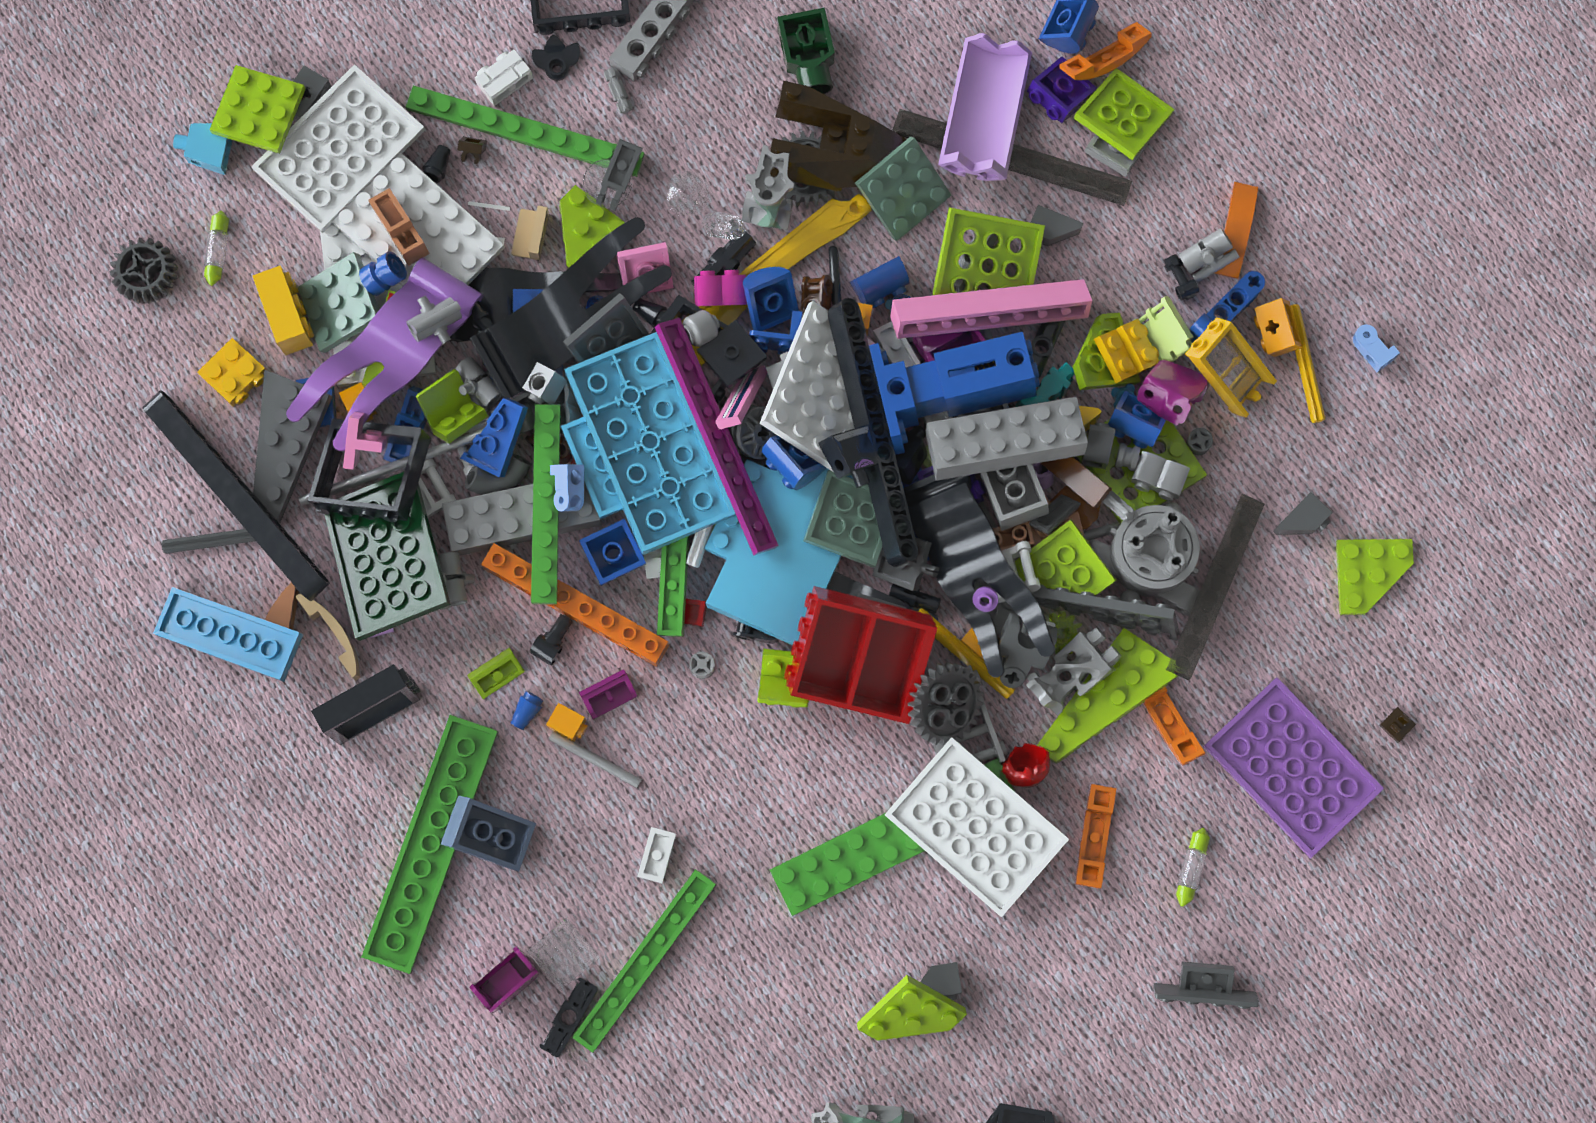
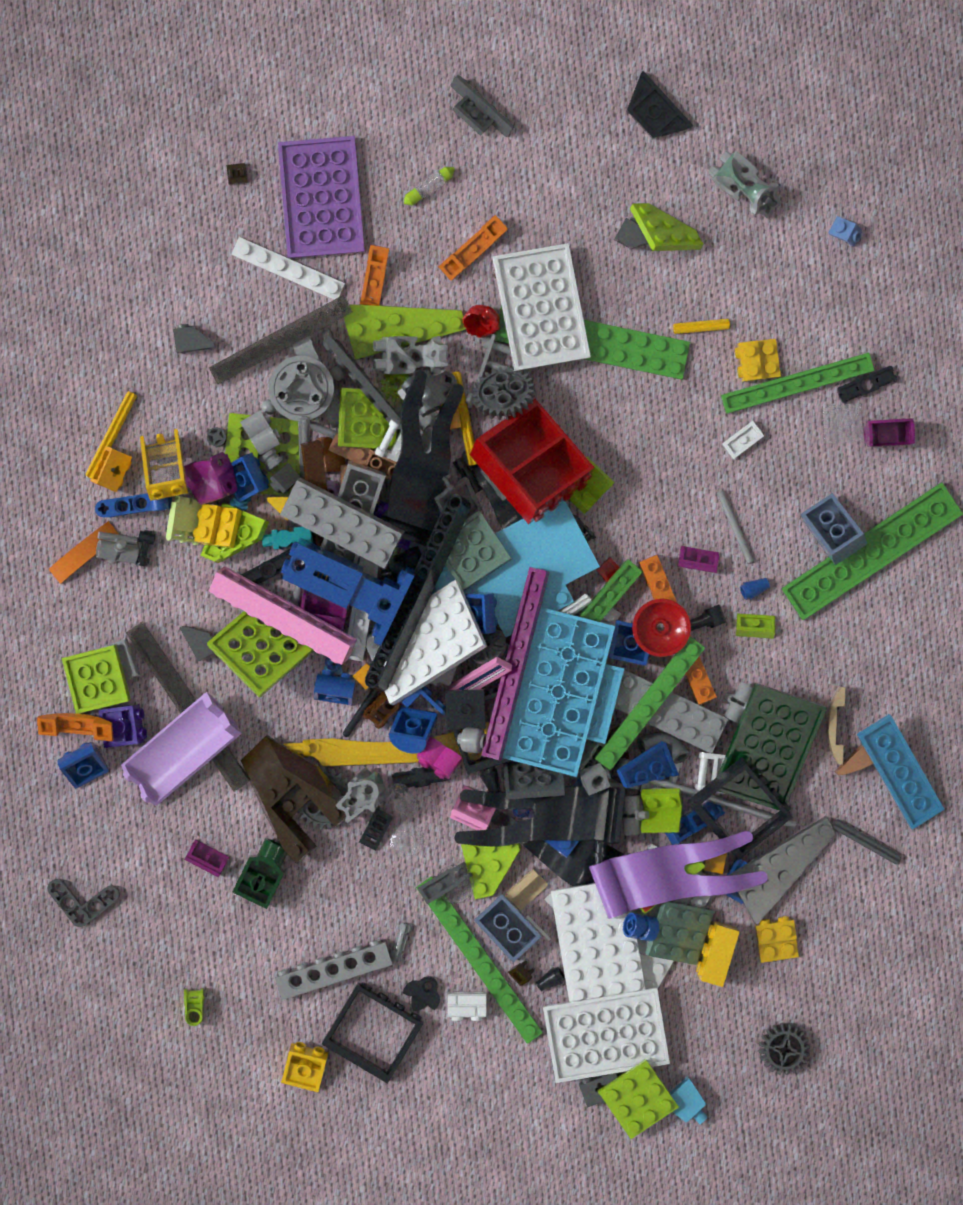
camera: 145 degrees left, 10 degrees up
(216, 248) = (728, 1029): piece -> none
(236, 495) = (832, 856): black beam -> none
(359, 441) = (734, 823): bright pink bracket -> none
(366, 704) = (850, 660): black window -> none
(399, 226) = (608, 951): nougat slope -> none
(434, 319) = (633, 869): light grey pin -> none
(519, 178) = (508, 927): none -> sand blue brick
(567, 722) = (736, 560): light orange brick -> none
(568, 486) = (628, 702): light blue leg -> none
(589, 570) = (675, 631): none -> red dish
(699, 661) = (628, 536): light grey wheel -> none
(705, 952) = (757, 360): none -> yellow plate
(732, 197) = (383, 815): none -> black slope
(792, 942) = (701, 326): none -> yellow axle
(851, 454) = (443, 586): black torso -> none
(875, 26) = (206, 858): none -> magenta hinge
(903, 188) = (274, 736): sand green plate -> none
(988, 593) = (426, 437): medium lavender plate -> none
(1059, 511) = (340, 458): dark grey tile -> none
(1266, 667) = (287, 268): none -> white plate
(1369, 570) = (177, 278): lime plate -> none
(1372, 348) = (62, 417): light blue leg -> none

